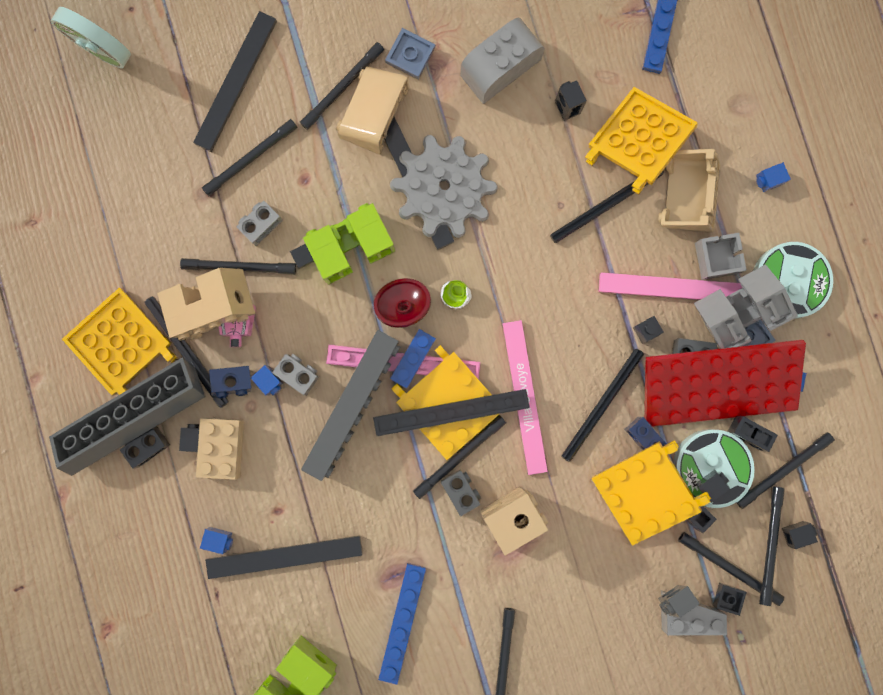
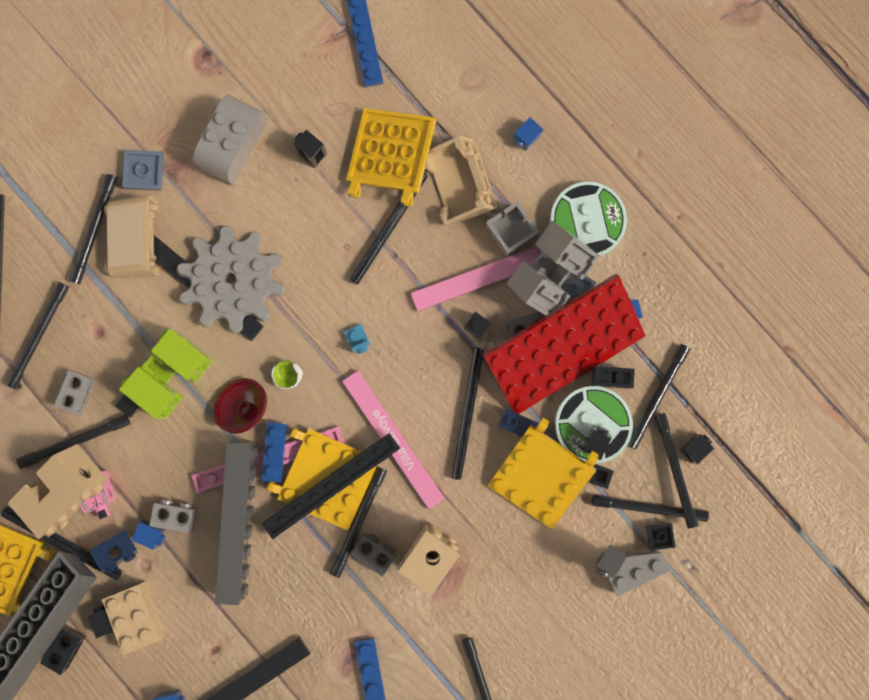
camera: 30 degrees left, 0 degrees up
(533, 292) = (357, 339): none -> dark azure bracket

